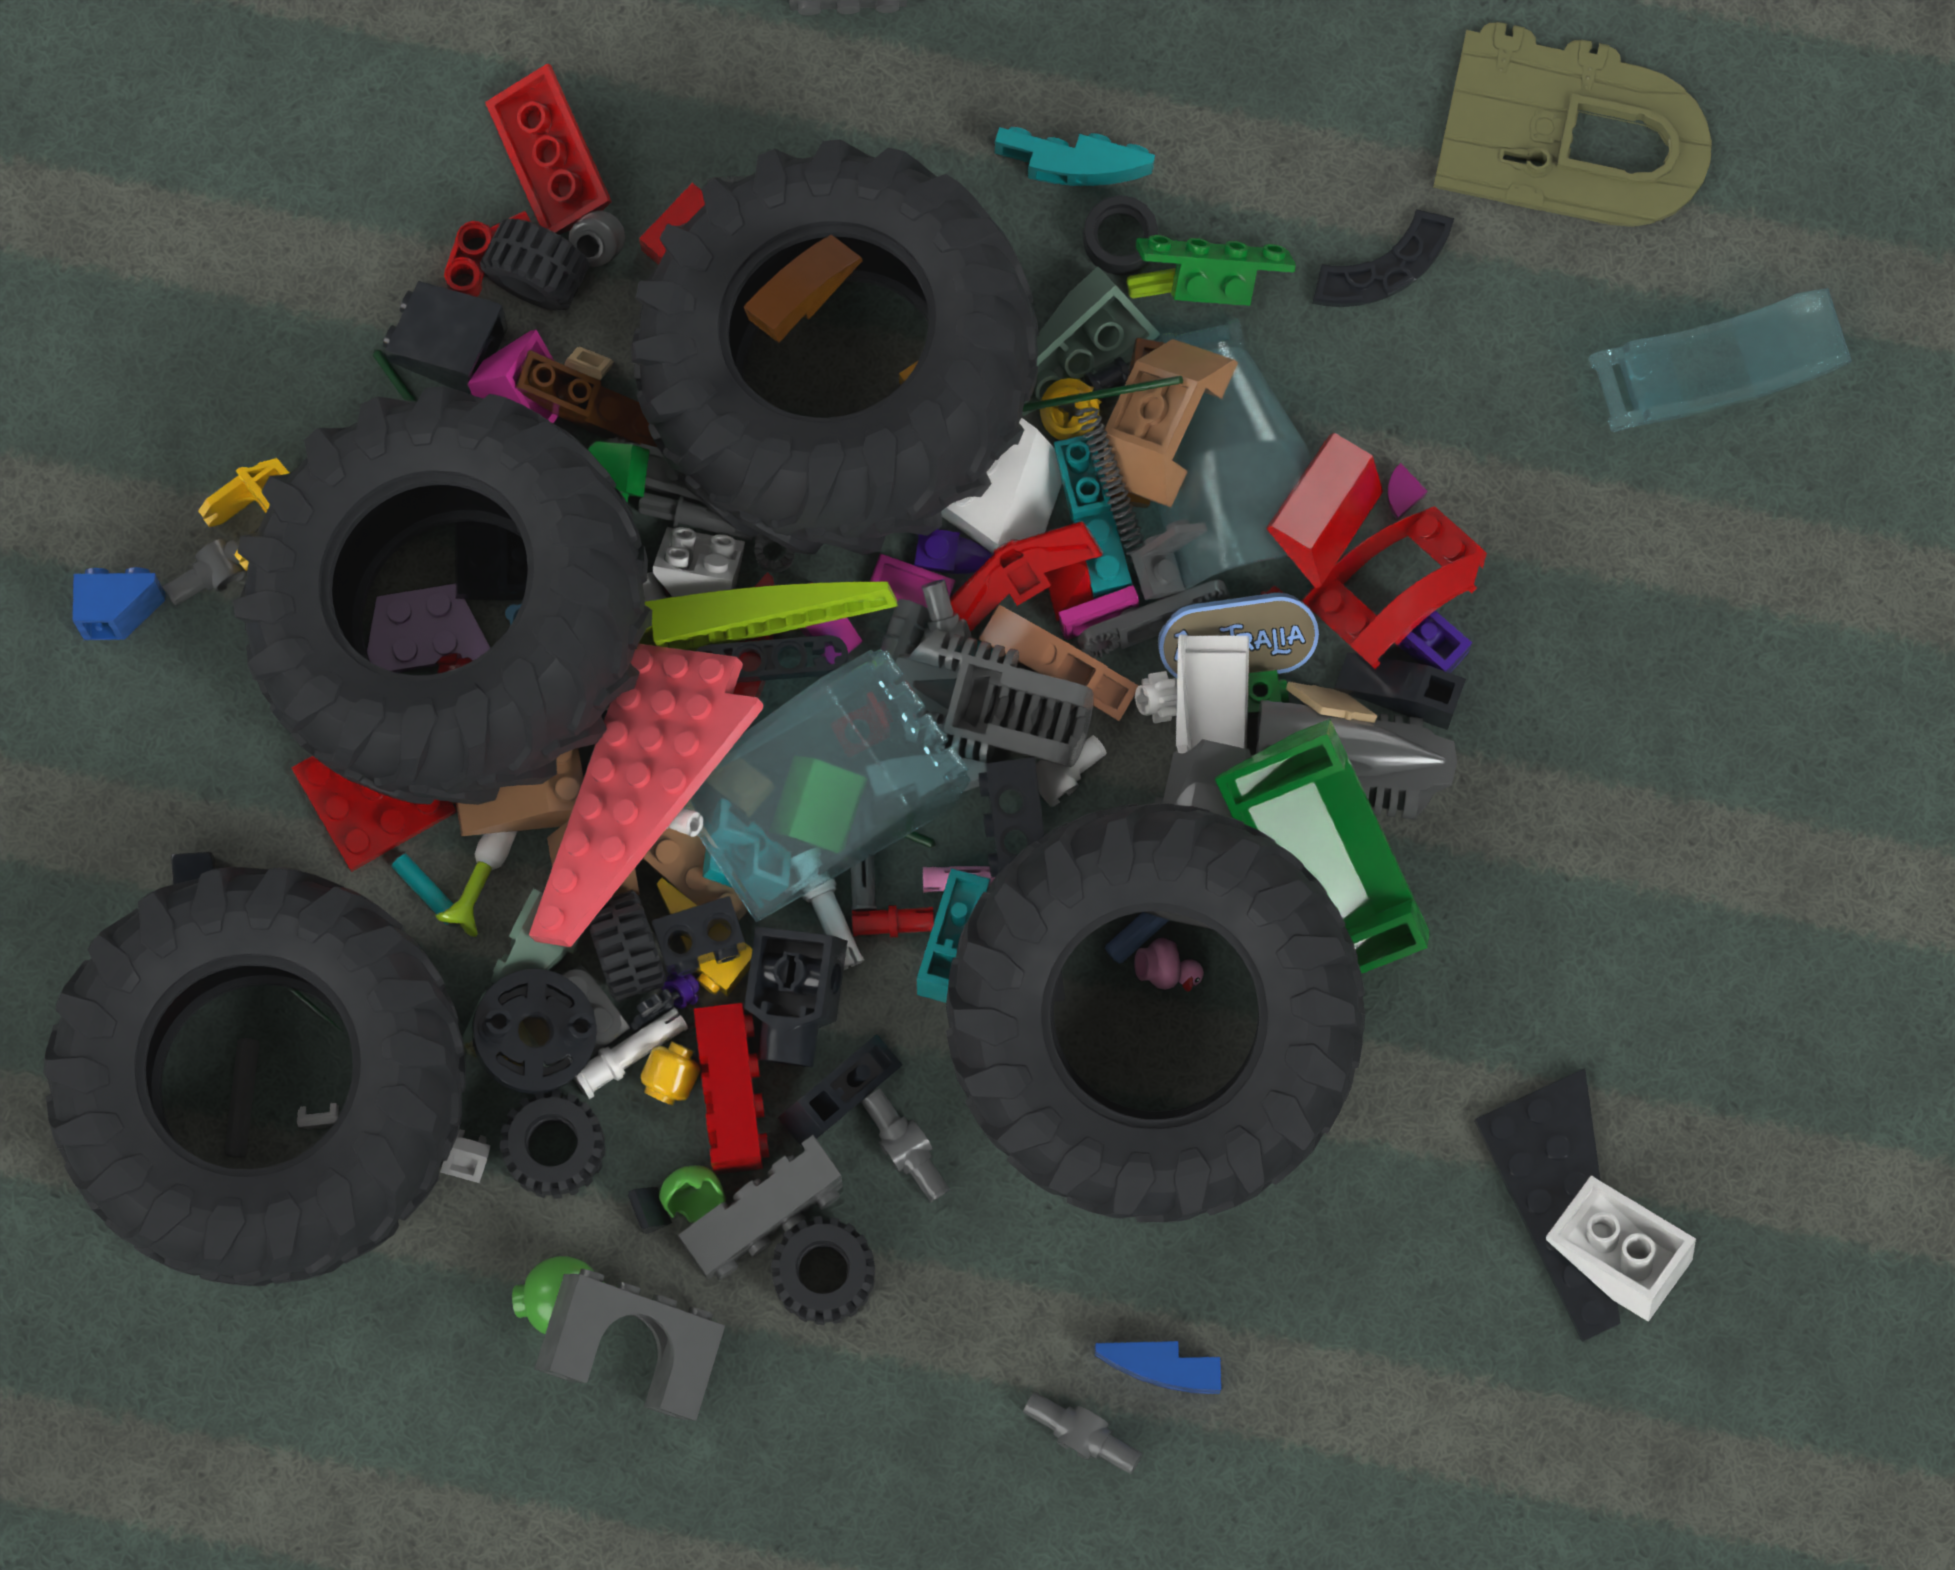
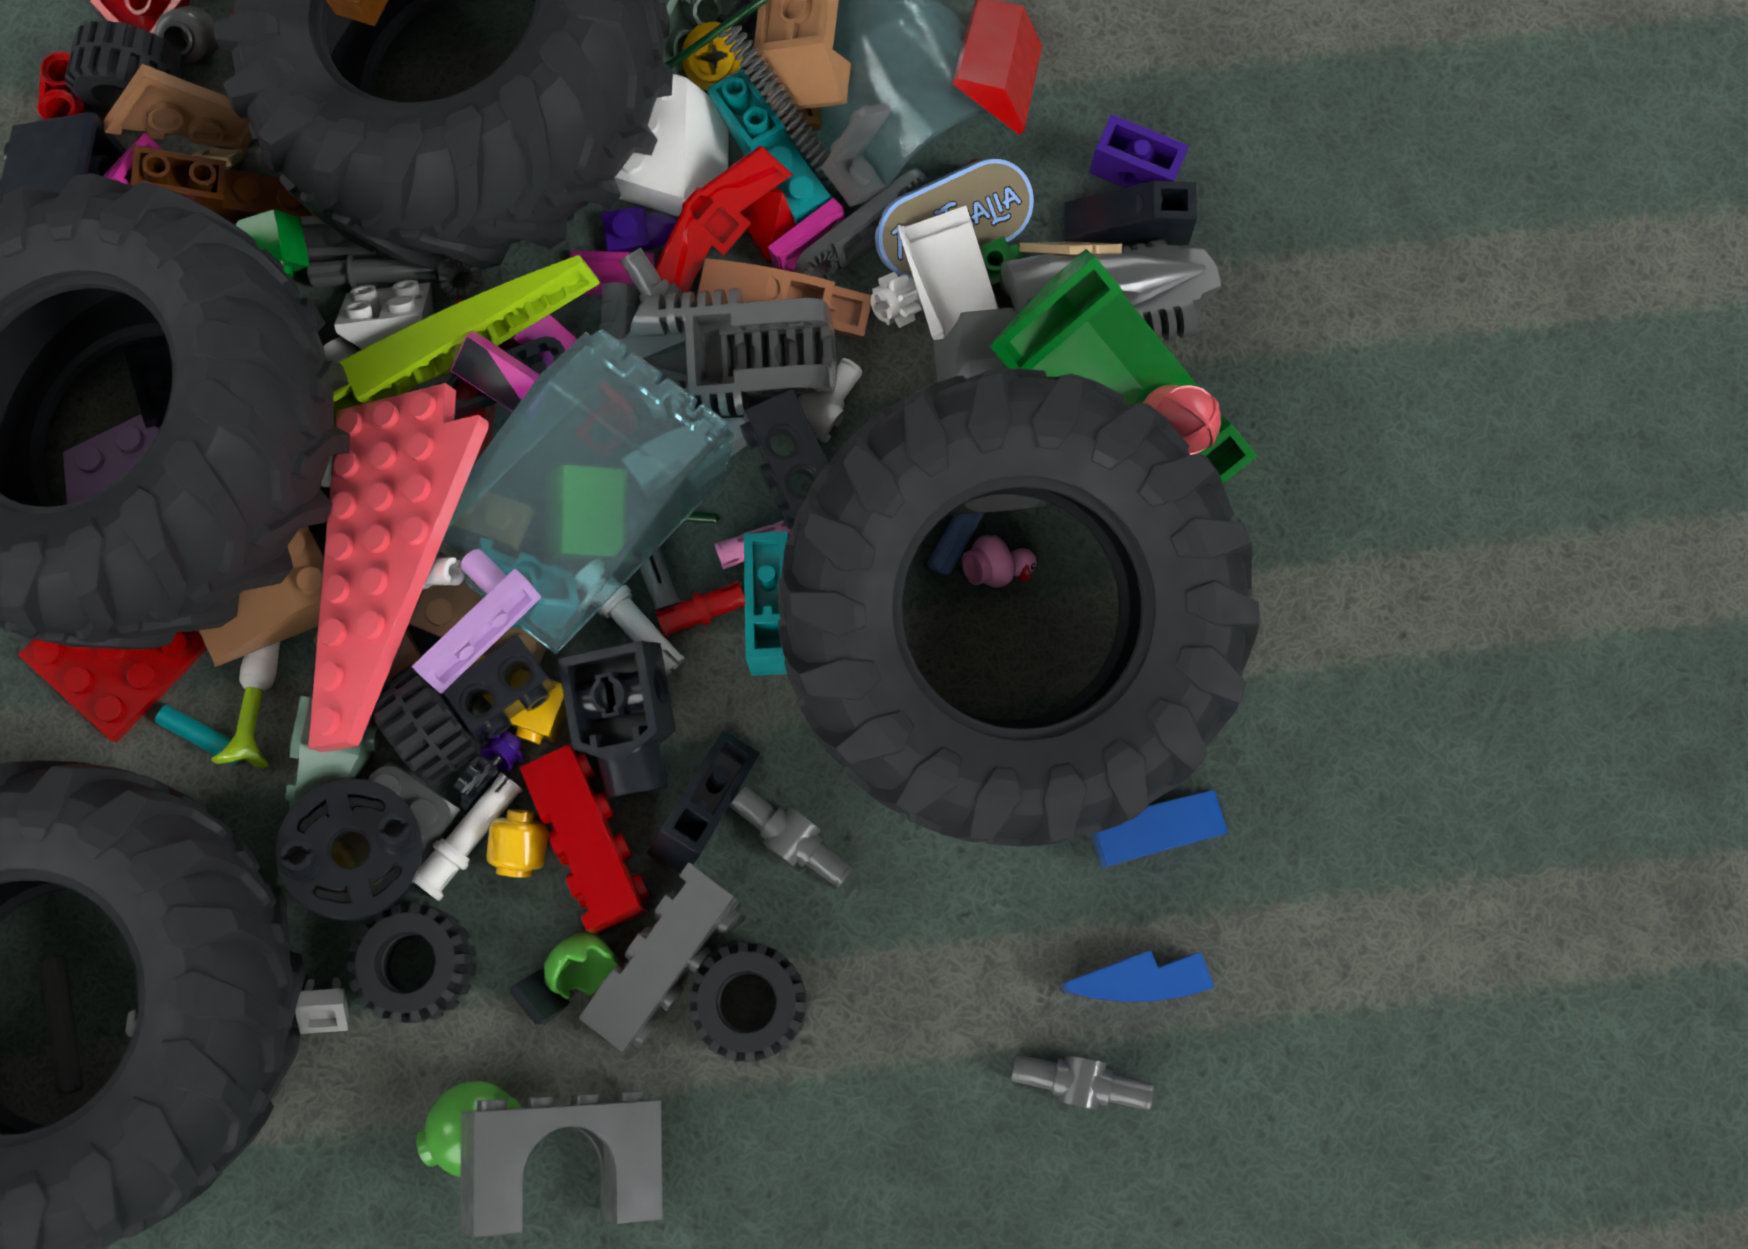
camera: 20 degrees left, 0 degrees up
(573, 315) = (174, 106): none -> medium nougat wing
(730, 866) = (482, 626): none -> lavender piece
(781, 659) = (493, 371): none -> tile
(1226, 1244) = (1161, 829): none -> blue slope
(1367, 893) = (1190, 411): none -> coral helmet
(1372, 633) = (1084, 169): red wedge -> none
(1403, 491) = (1062, 38): magenta tile -> none
(1545, 1158) = (1458, 646): black wing -> none
(1622, 1247) = (1567, 695): white slope -> none

